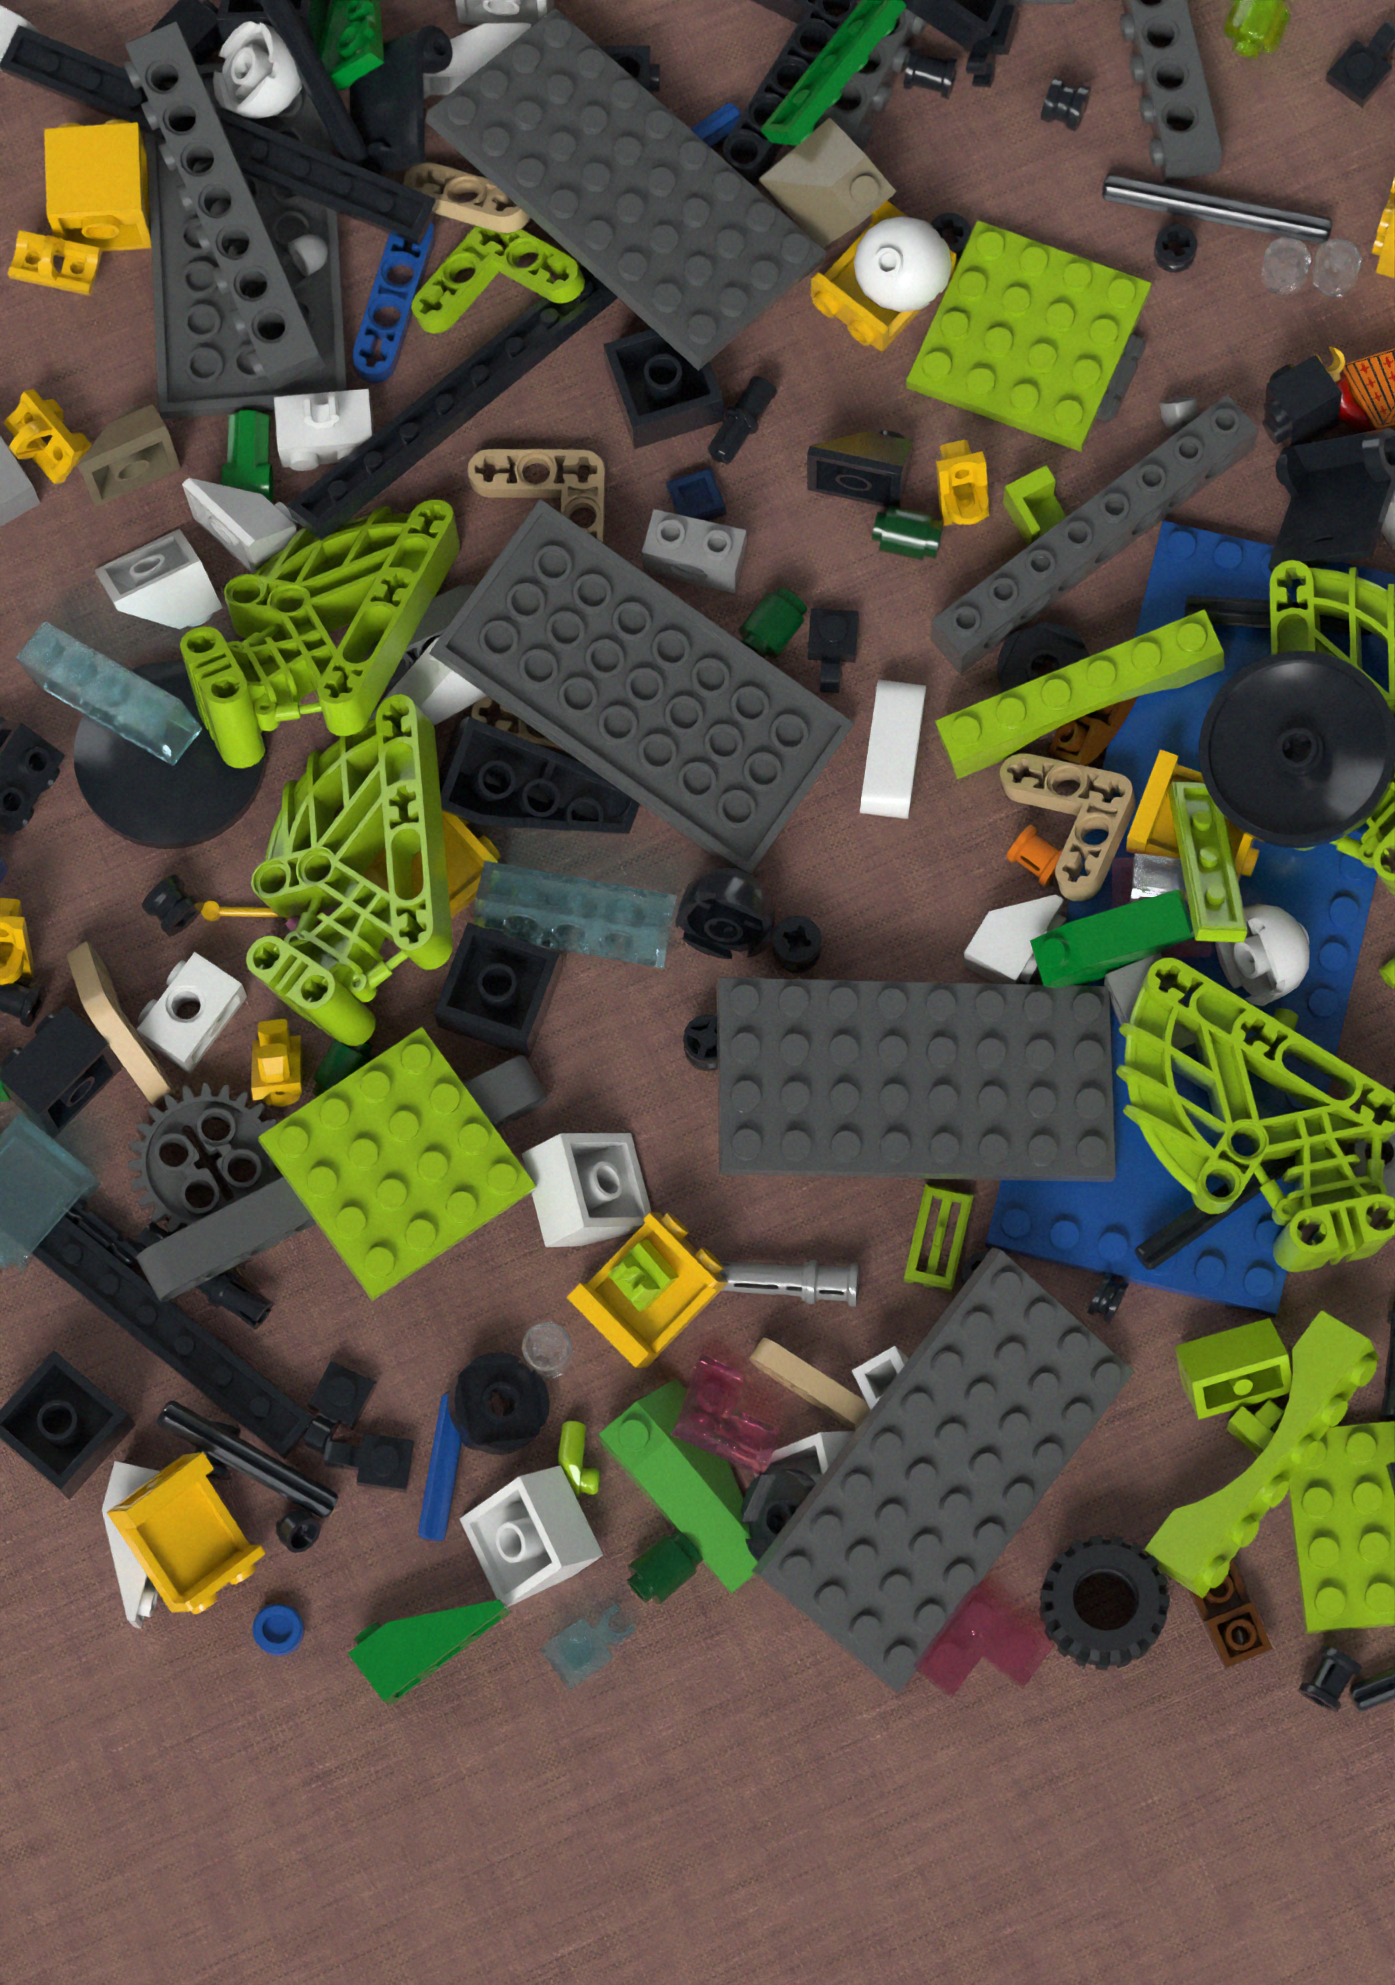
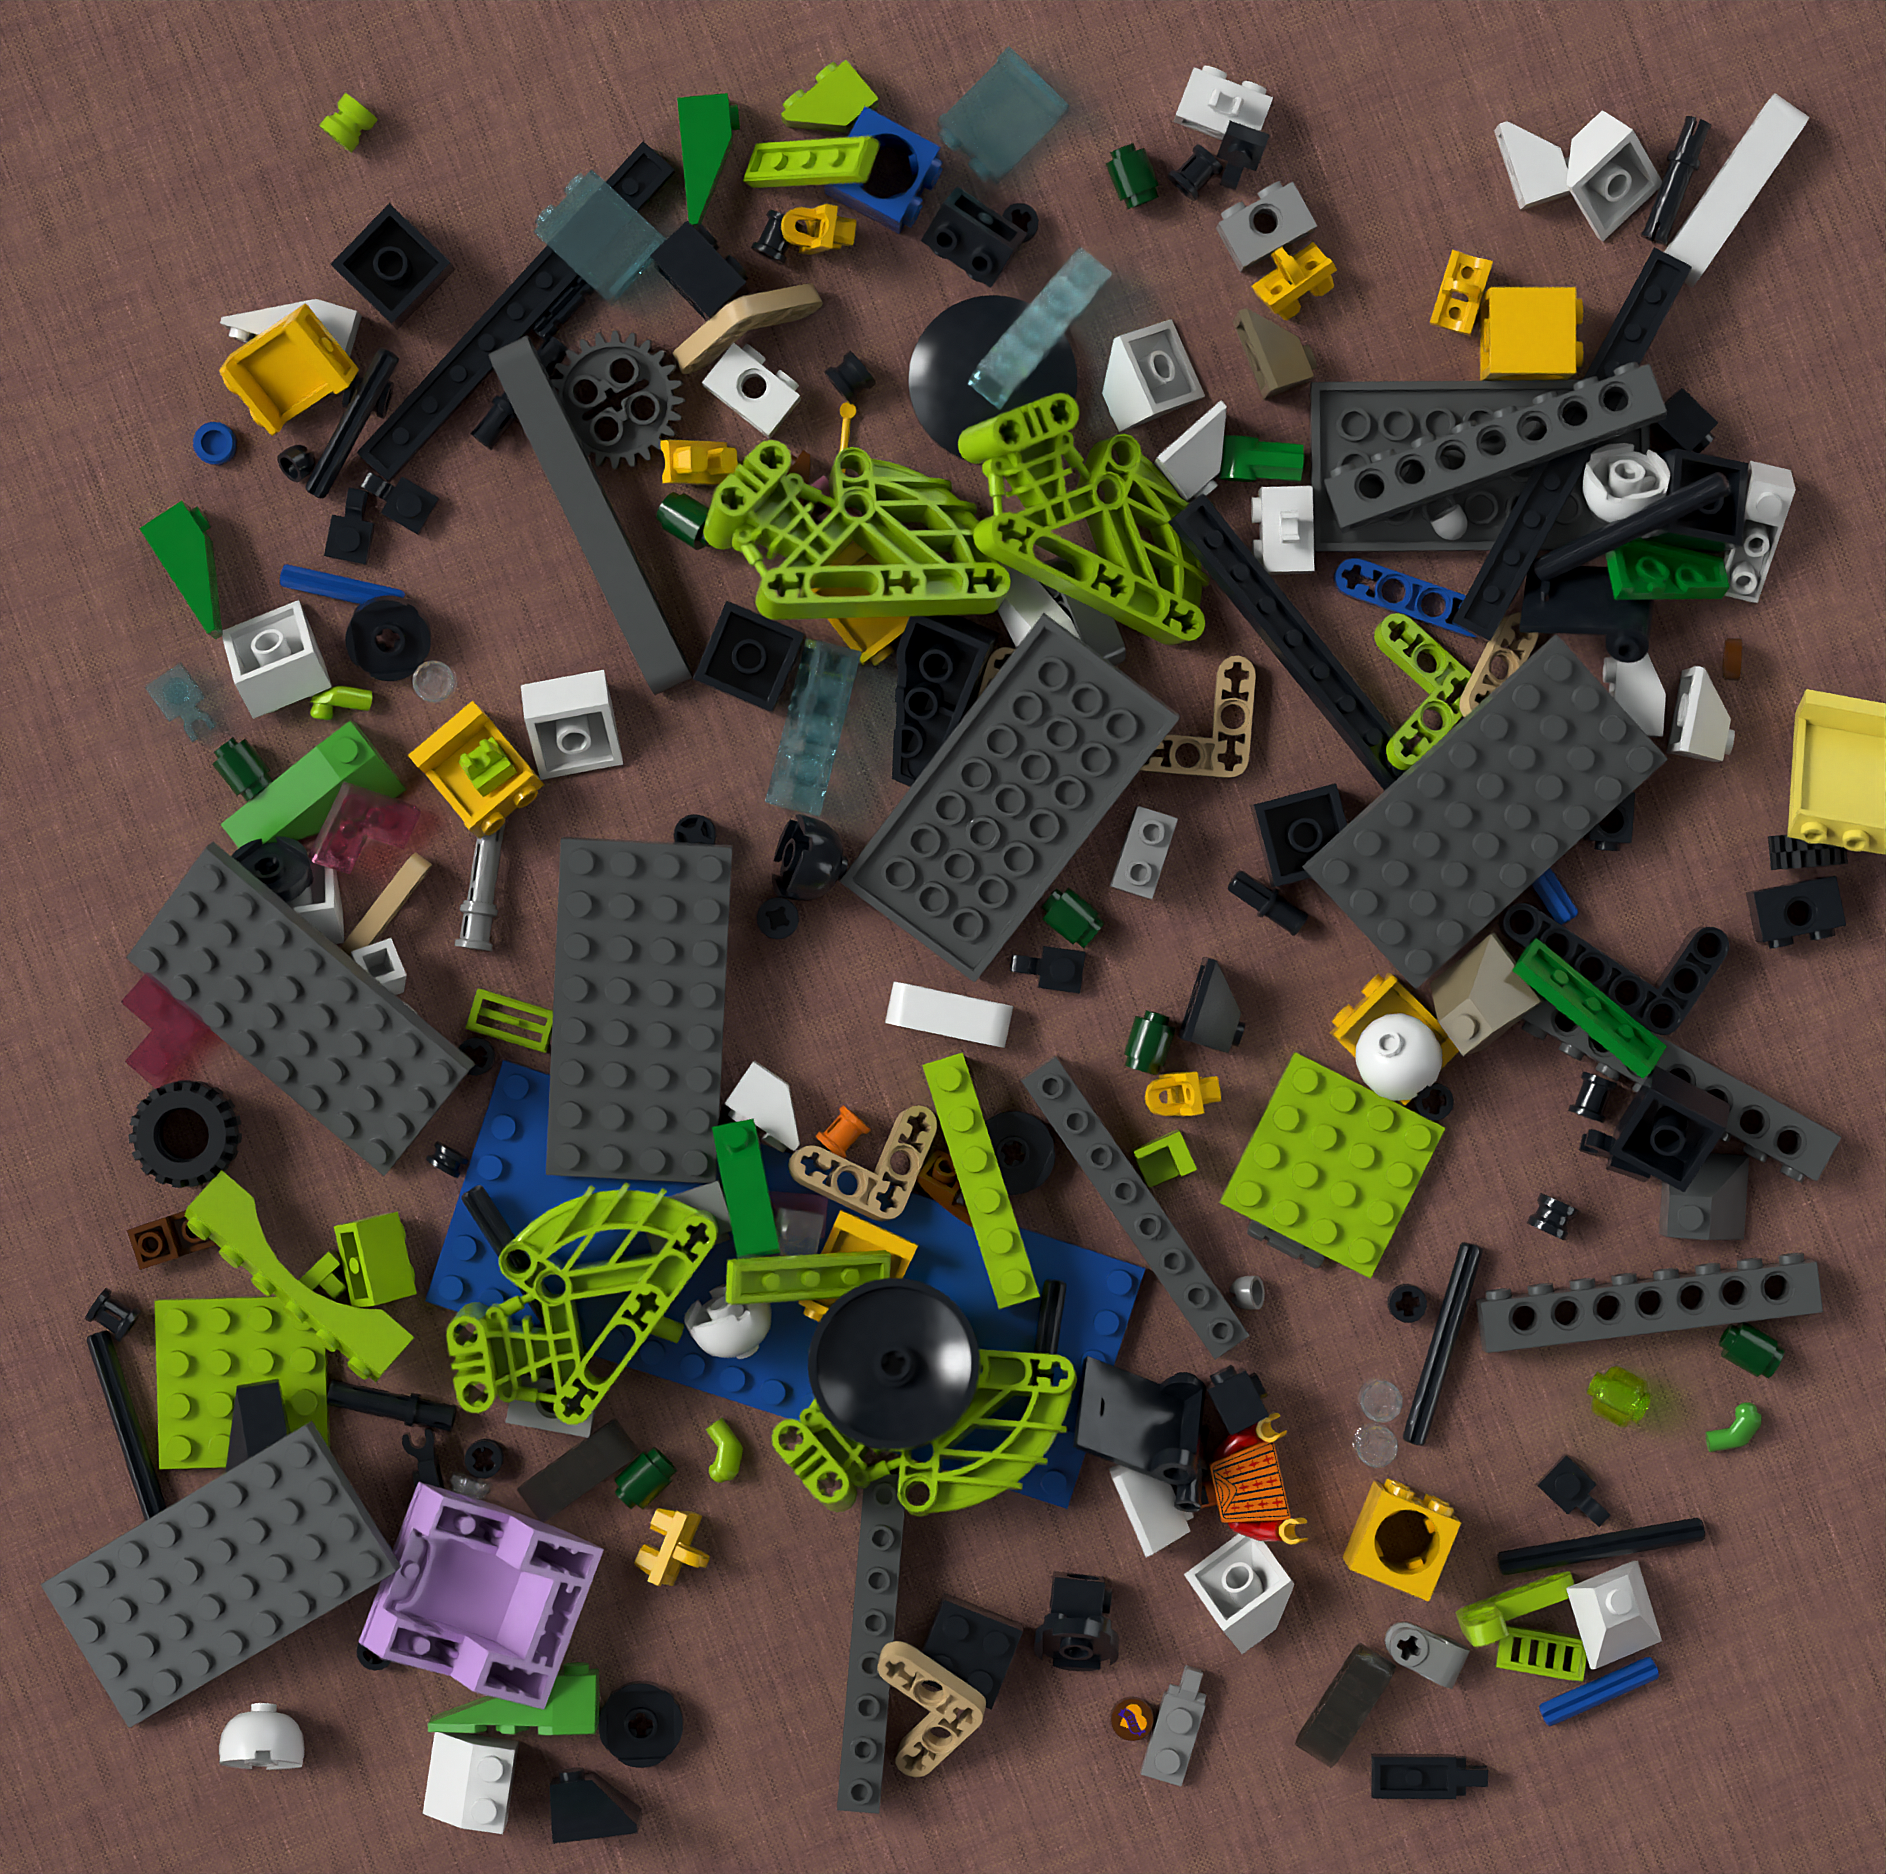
camera: 85 degrees right, 15 degrees up
(397, 1163) = (593, 561): lime plate -> none
(697, 496) = (1199, 857): dark blue tile -> none

